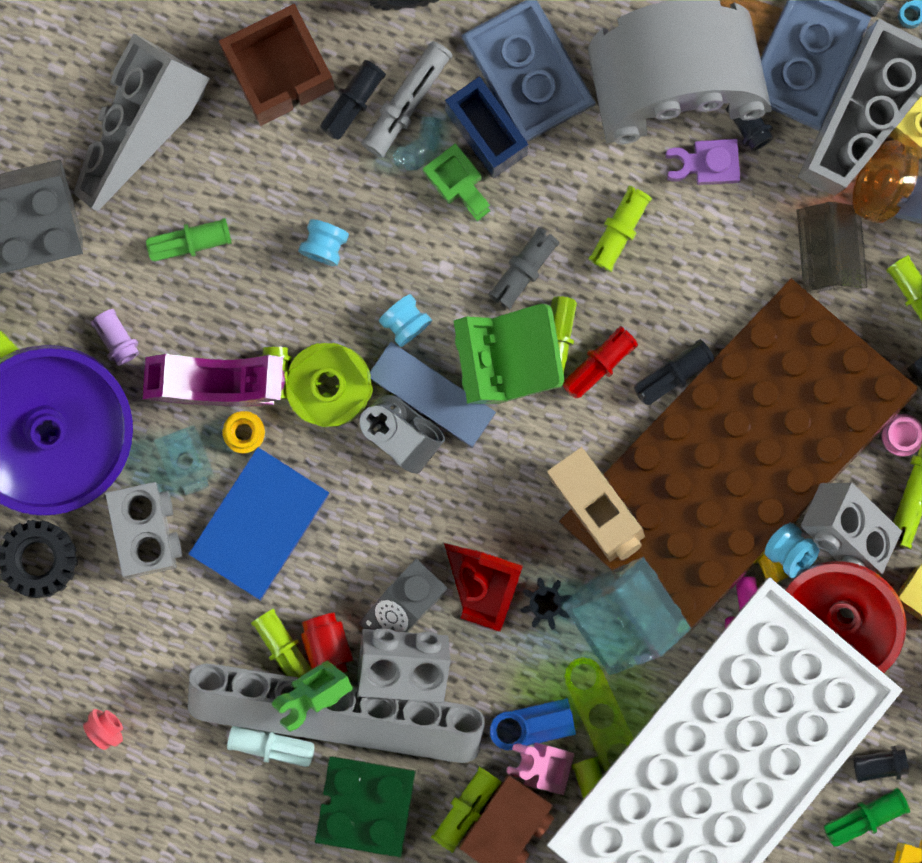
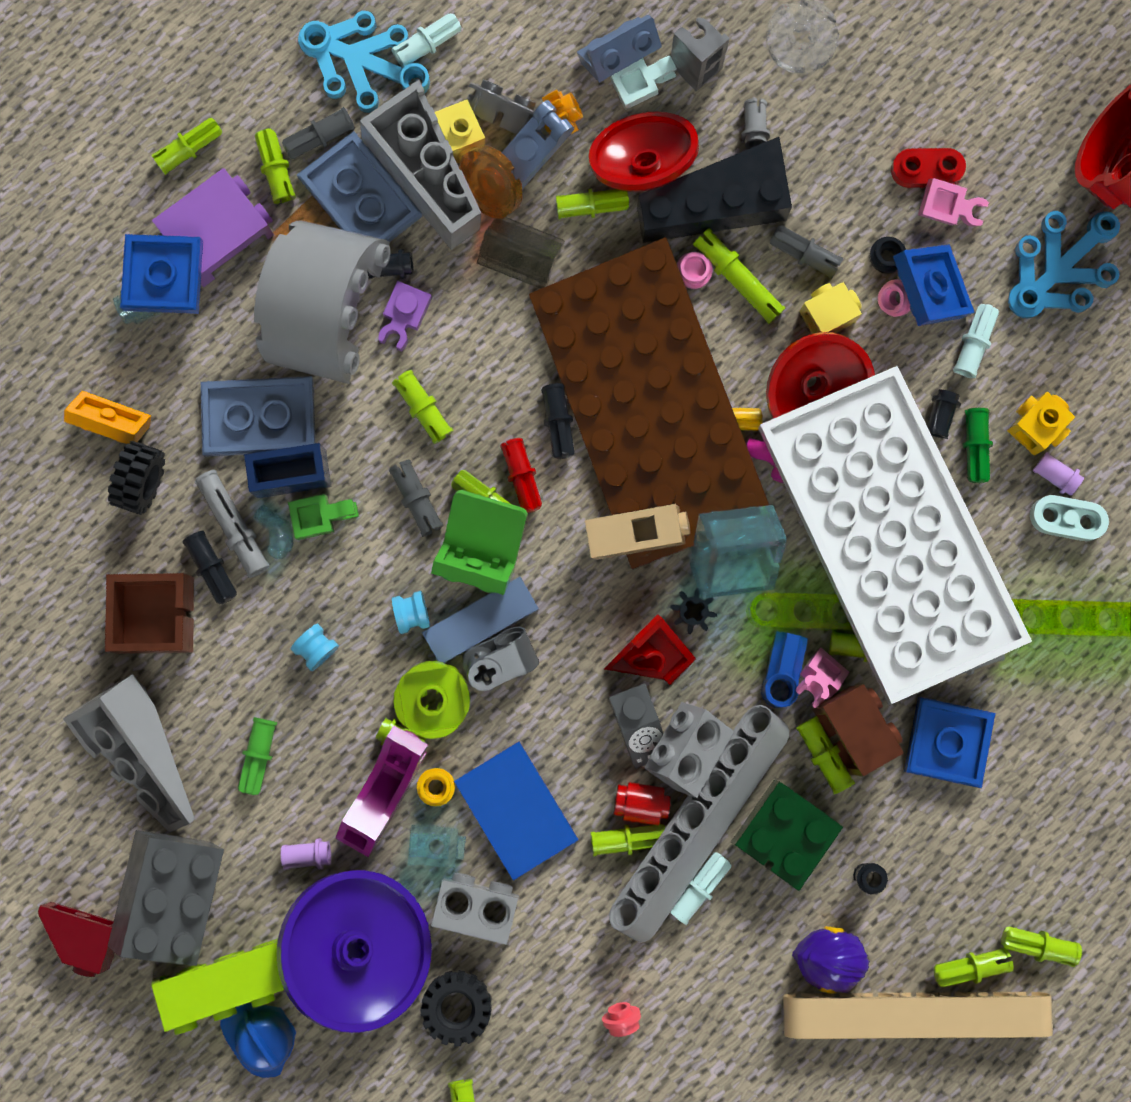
camera: 65 degrees left, 0 degrees up
(313, 690) = (677, 831): bright green plate -> none
(791, 550) = (746, 397): medium azure wheel -> none
(850, 526) = (749, 342): light grey brick -> none

